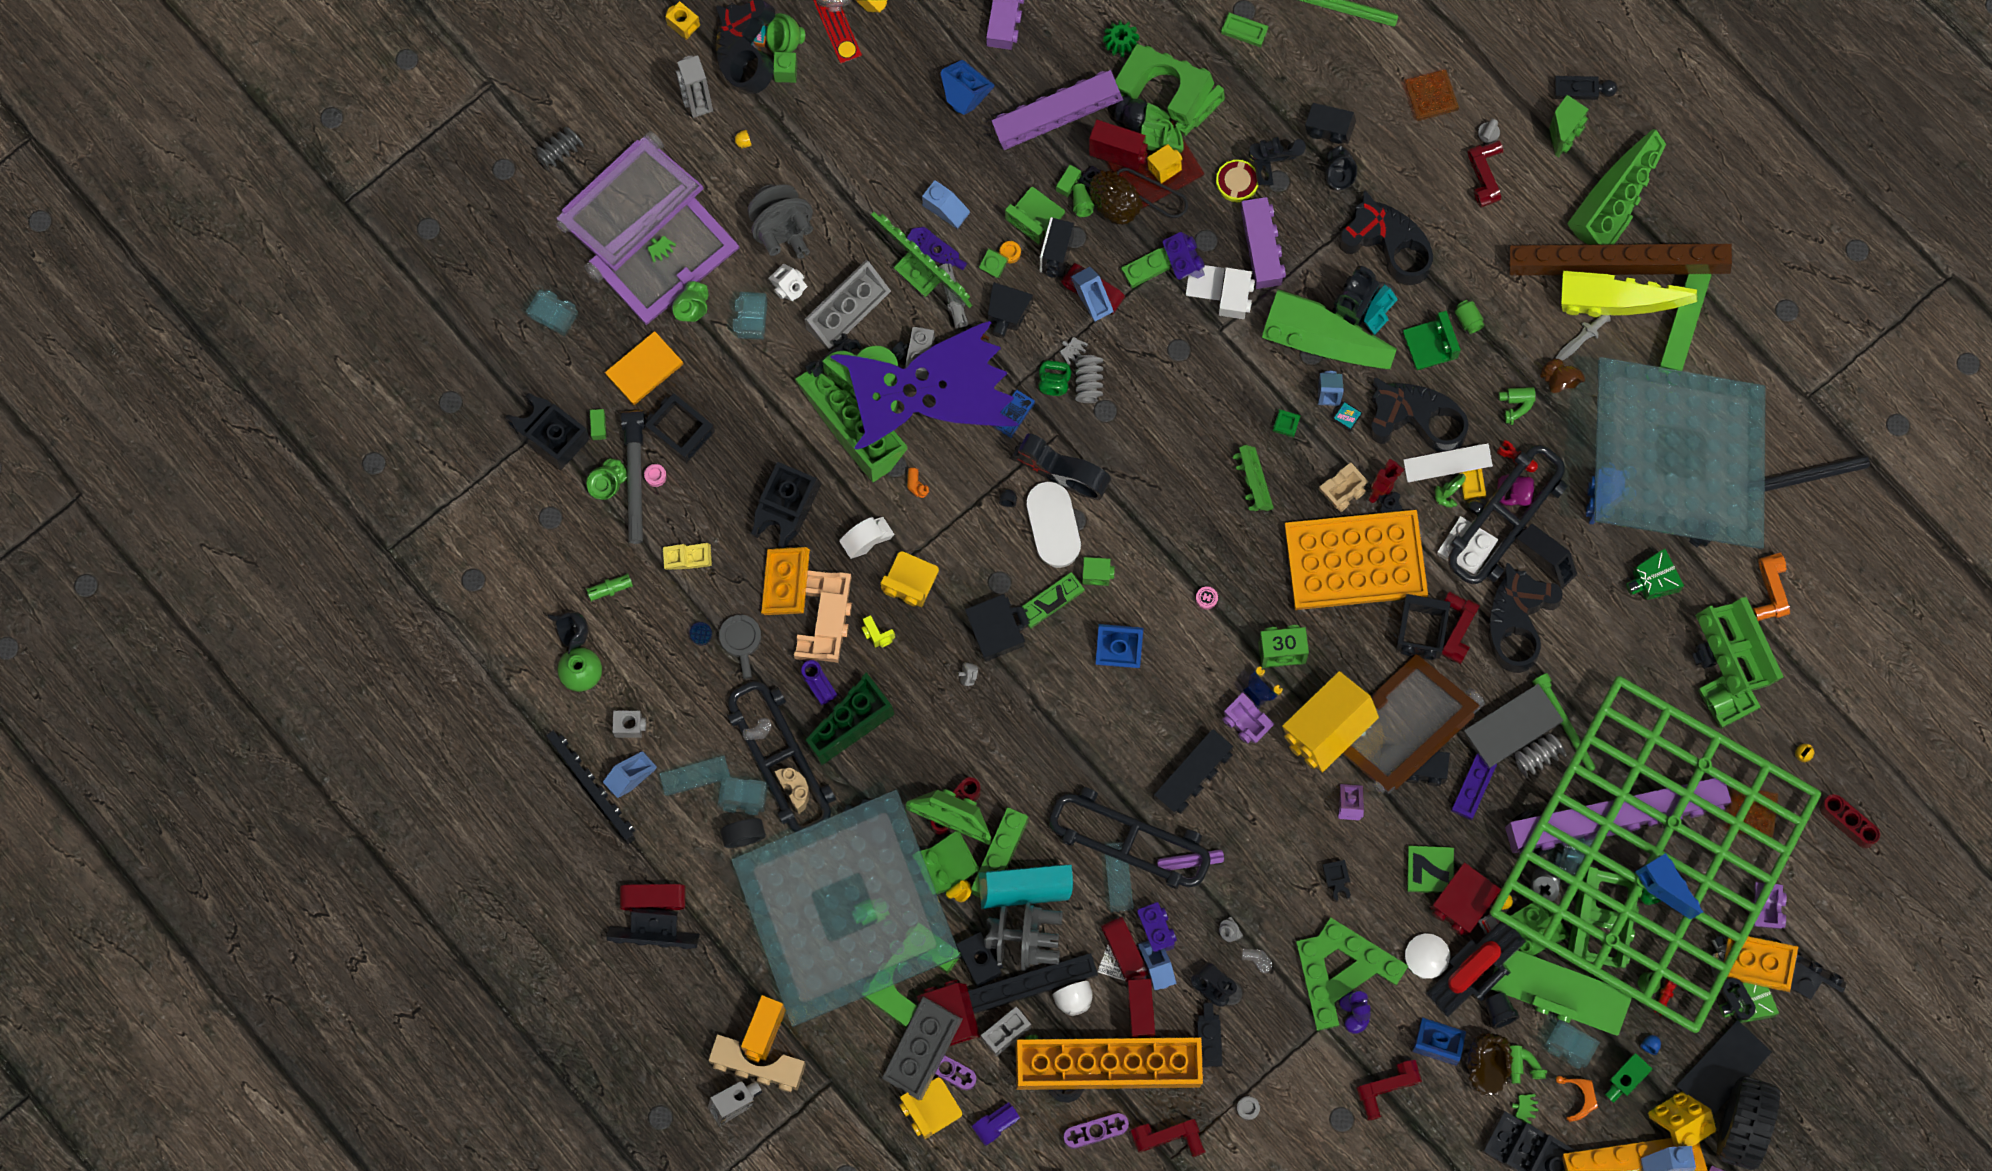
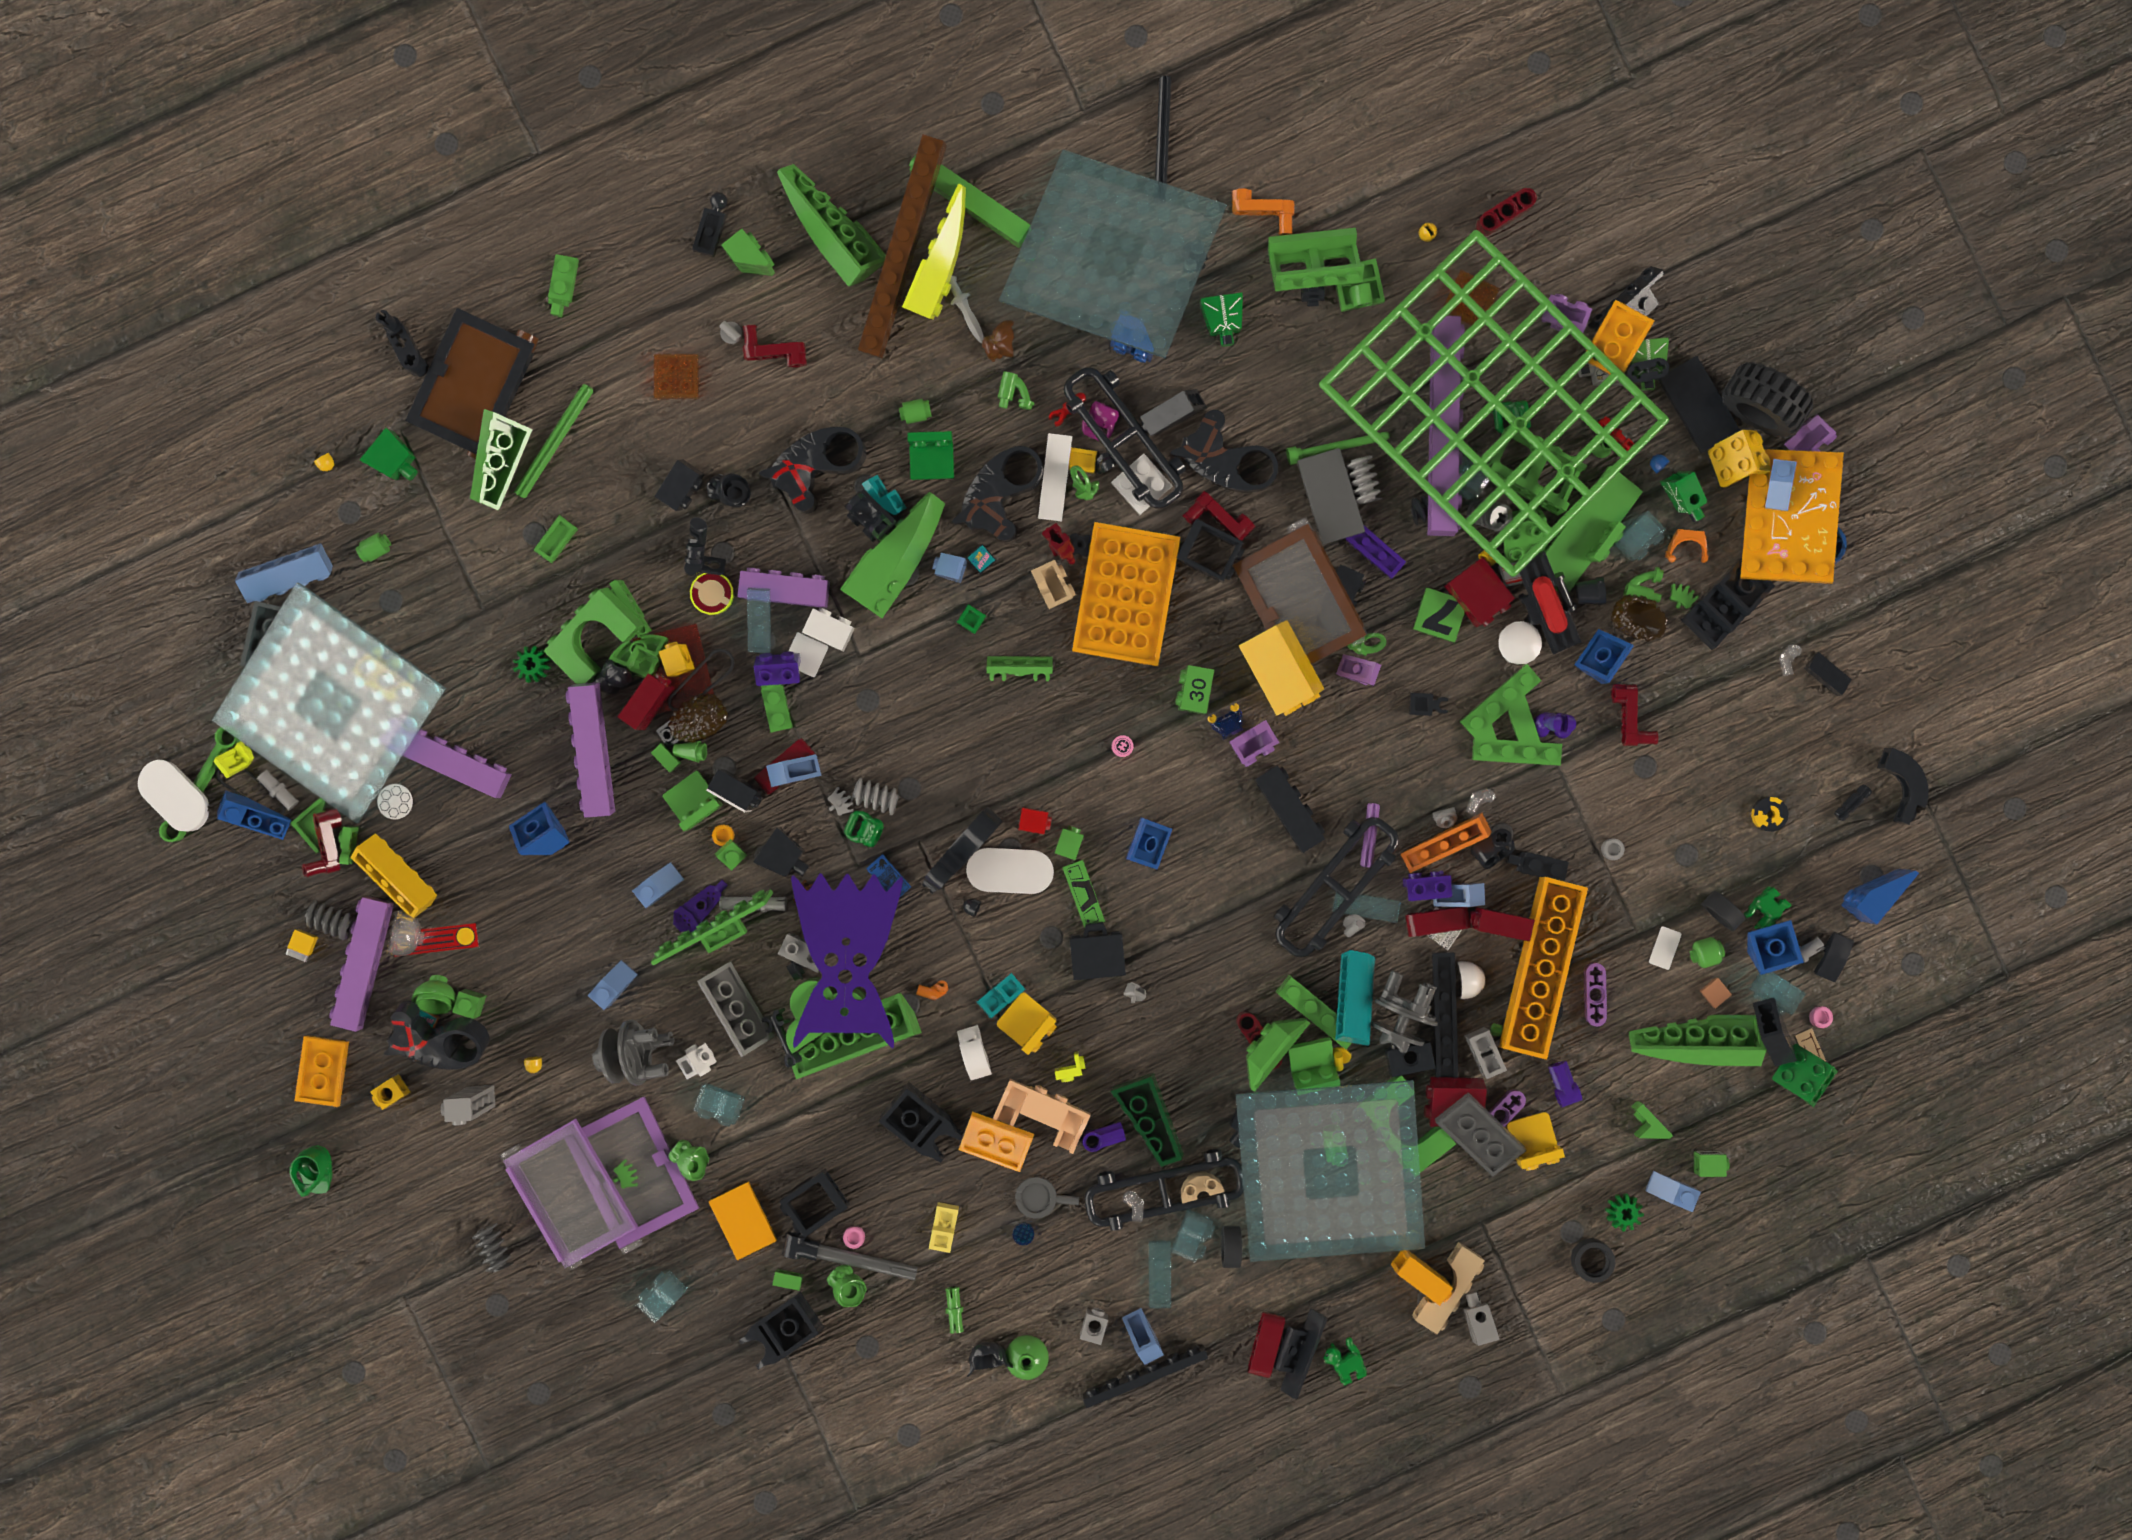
camera: 75 degrees left, 15 degrees up
(651, 979) = (1347, 1363): none -> green animal
(838, 189) = (612, 985): none -> medium blue slope
(929, 548) = (1000, 995): none -> teal slope
(1097, 868) = (1353, 924): none -> light grey plate
(1109, 529) = (1034, 821): none -> red brick
(1146, 1140) = (1618, 950): dark red beam -> none
(1206, 937) = (1447, 842): none -> orange slope
(1225, 227) = (759, 620): none -> clear light blue tile
(1373, 799) = (1362, 649): none -> bright green piece
(1667, 885) = (1528, 405): blue slope -> none

